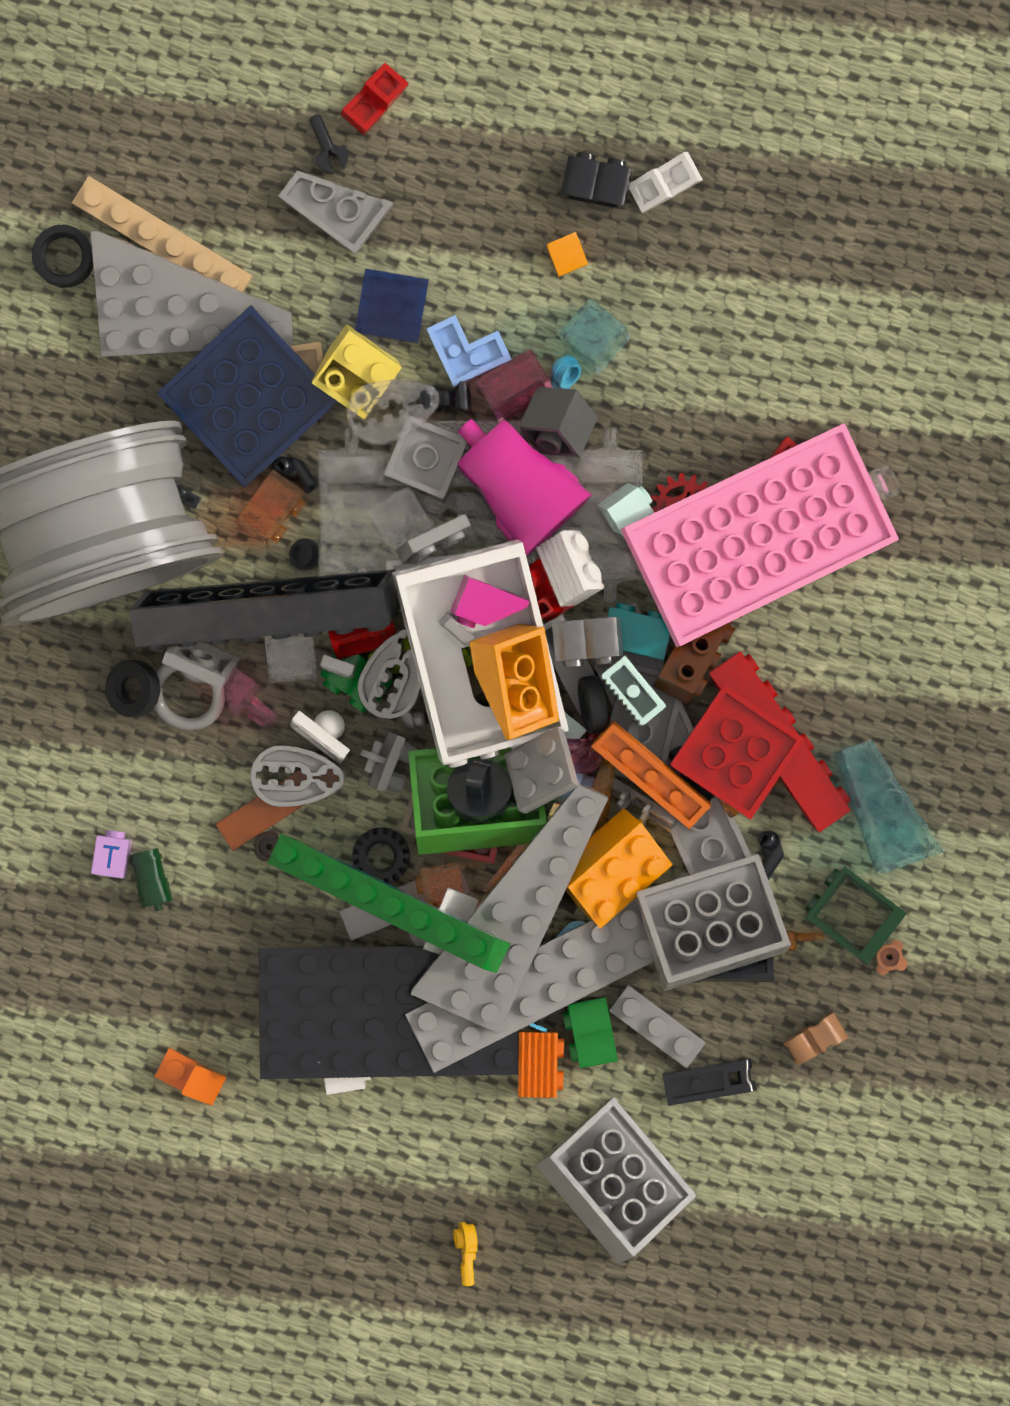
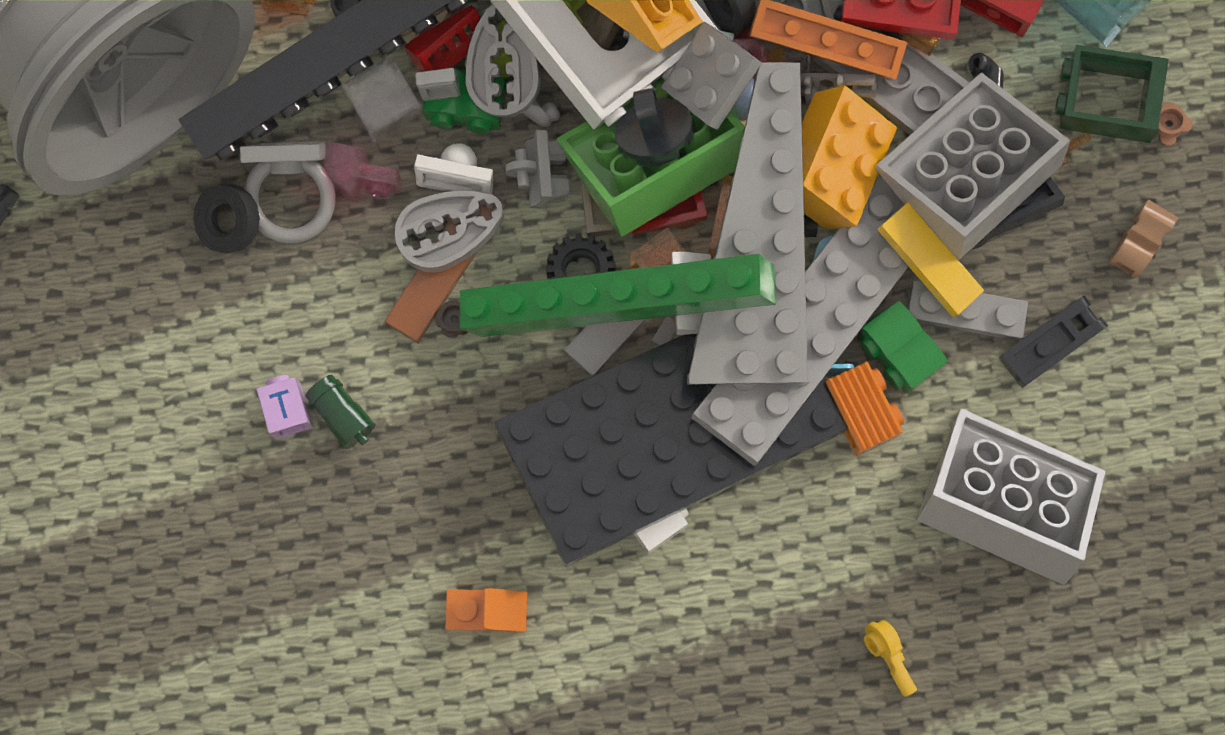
camera: 30 degrees left, 10 degrees down
(643, 980) = (930, 259): none -> yellow tile

